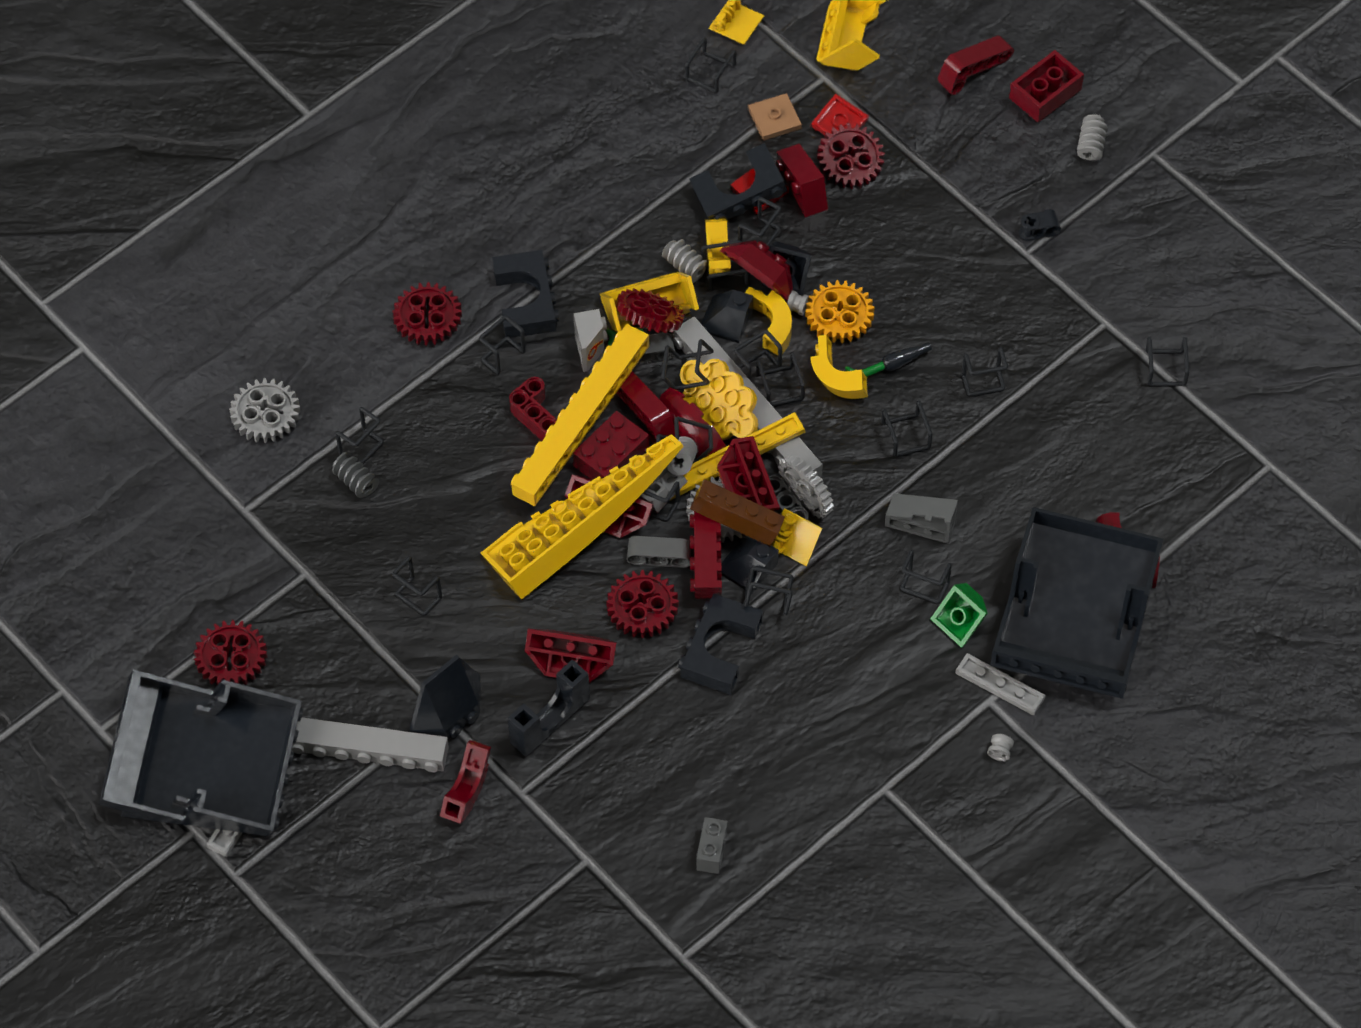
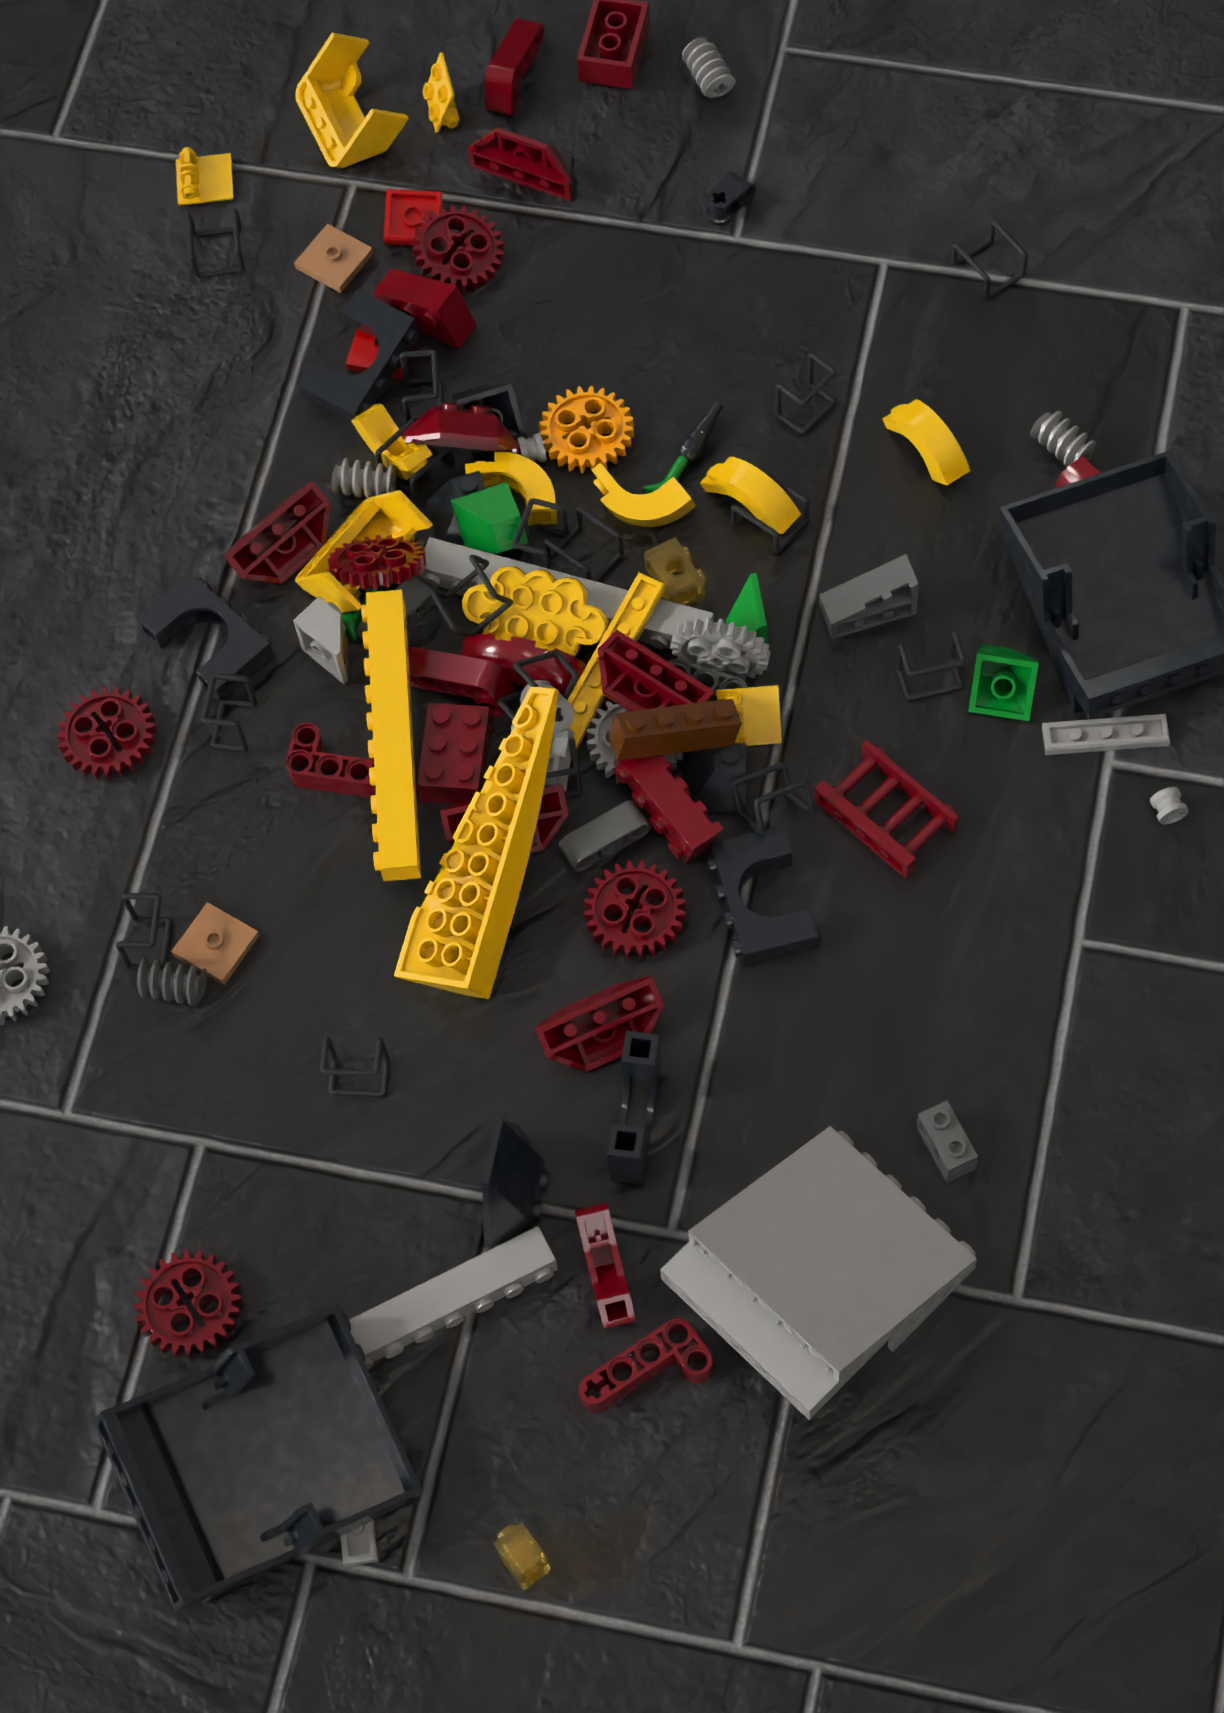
camera: 30 degrees left, 5 degrees up
(300, 901) = (521, 1555): none -> clear yellow brick
(397, 470) = (215, 943): none -> medium nougat plate
(442, 854) = (642, 1370): none -> dark red beam
(580, 858) = (818, 1268): none -> light grey panel
(610, 265) = (283, 538): none -> dark red wedge
(735, 326) = (488, 519): none -> green slope
(816, 653) = (879, 836): none -> dark red fence
(822, 417) = (671, 558): none -> clear yellow brick
(842, 480) = (749, 609): none -> green slope
(905, 411) = (754, 490): none -> yellow arch
(916, 57) = (440, 96): none -> yellow hinge
(931, 126) = (522, 162): none -> dark red wedge
(1036, 446) = (931, 438): none -> yellow arch
(1120, 495) = (1061, 439): none -> light grey piece

